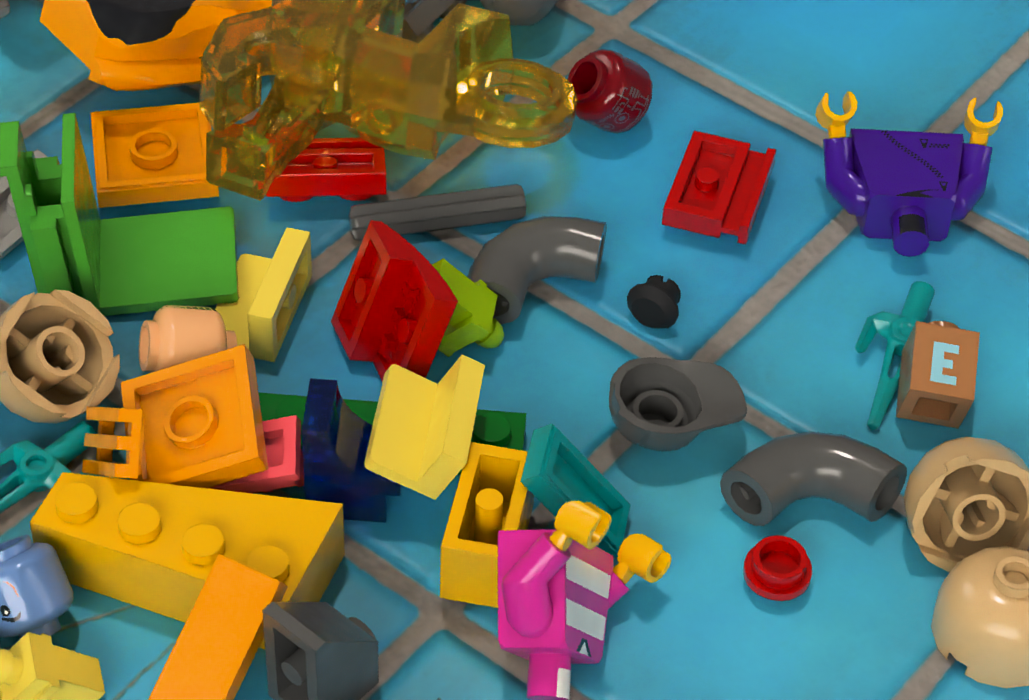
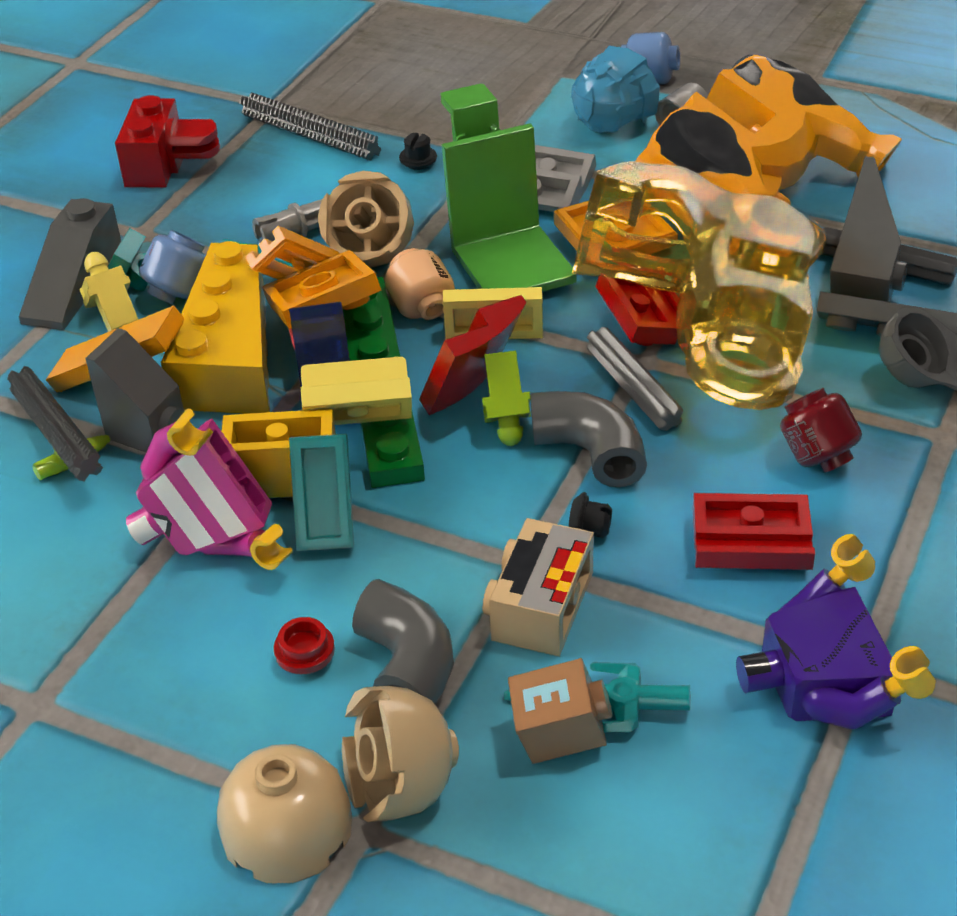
camera: 80 degrees right, 5 degrees down
(672, 401) = (452, 535): dark grey piece -> none
(764, 348) = (540, 586): none -> brick

